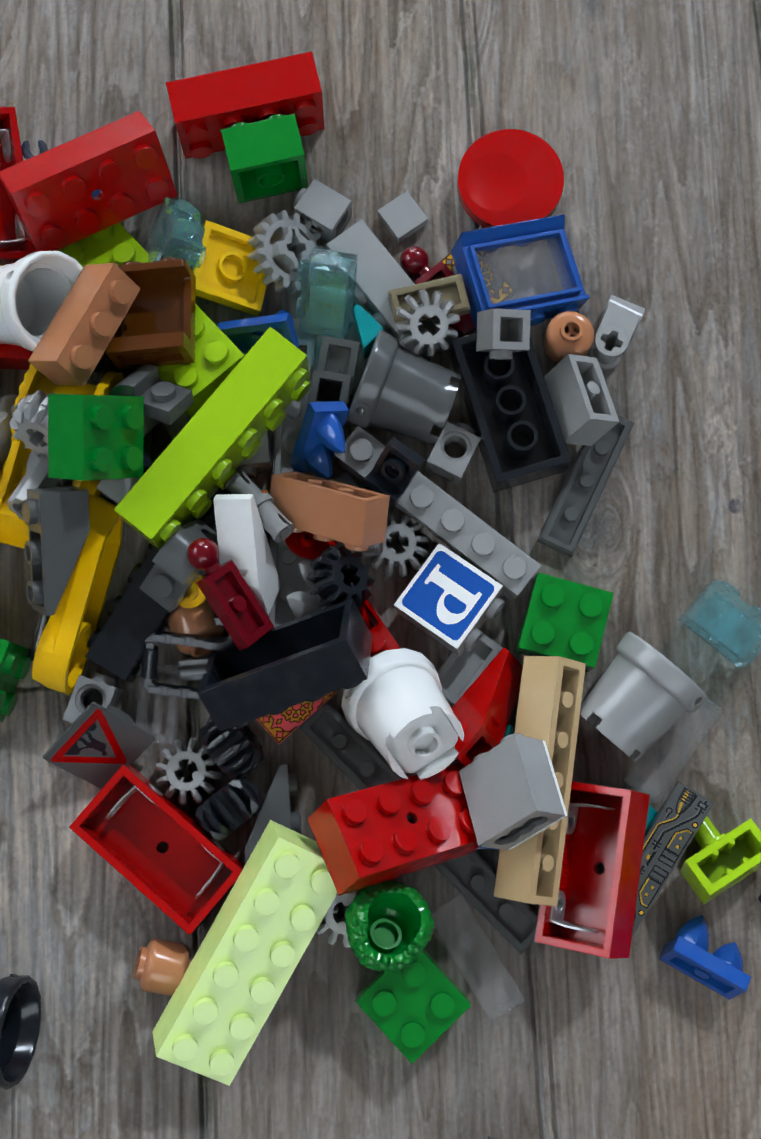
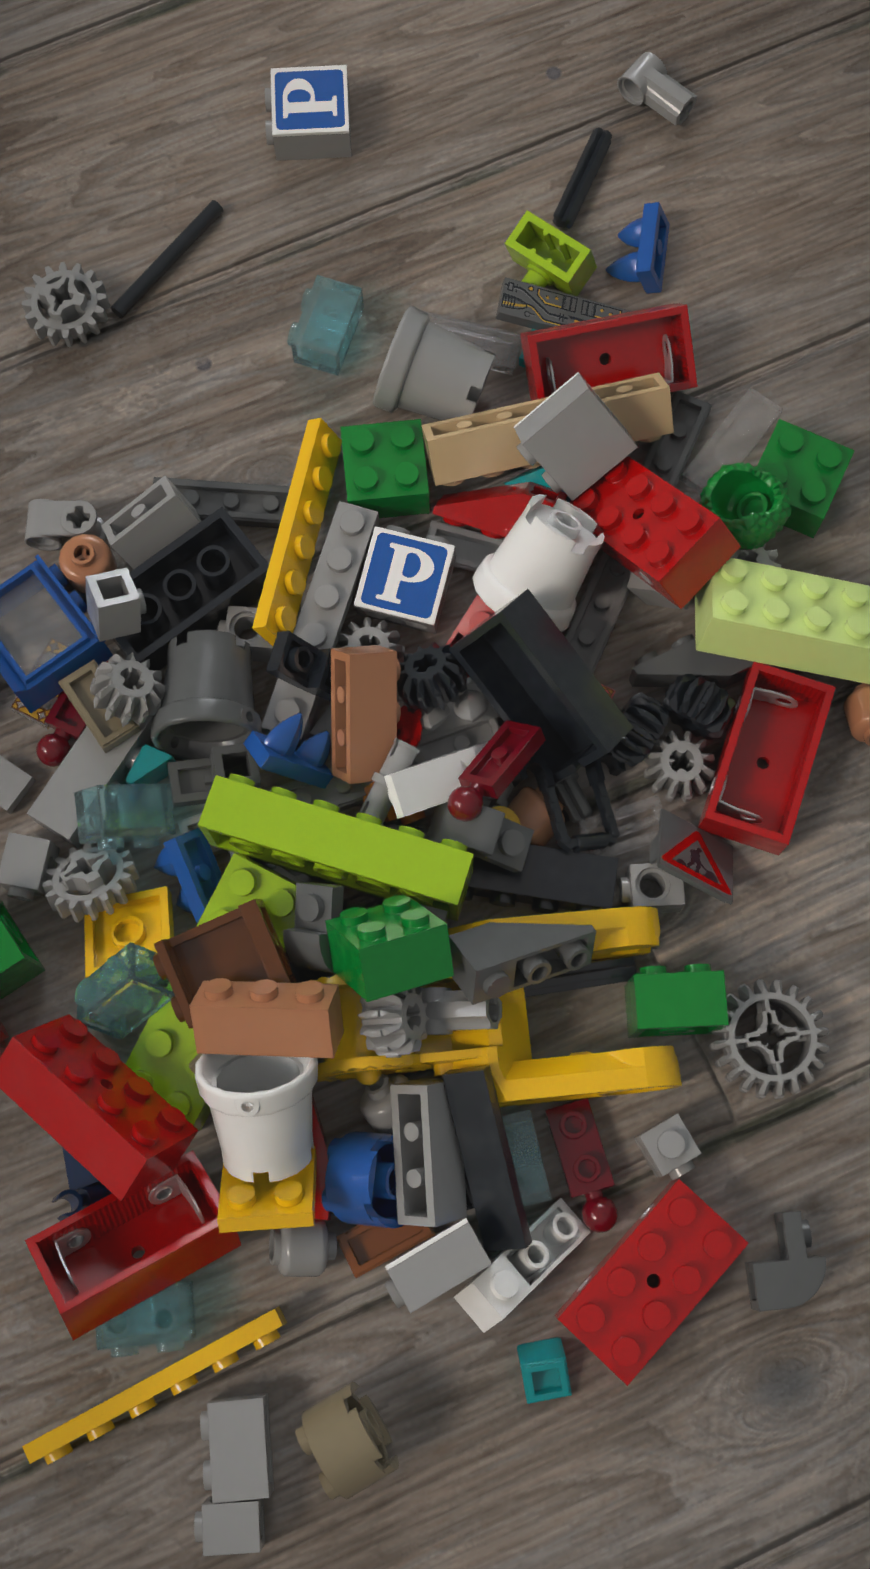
camera: 110 degrees left, 5 degrees down
(526, 521) = (298, 531): none -> yellow plate

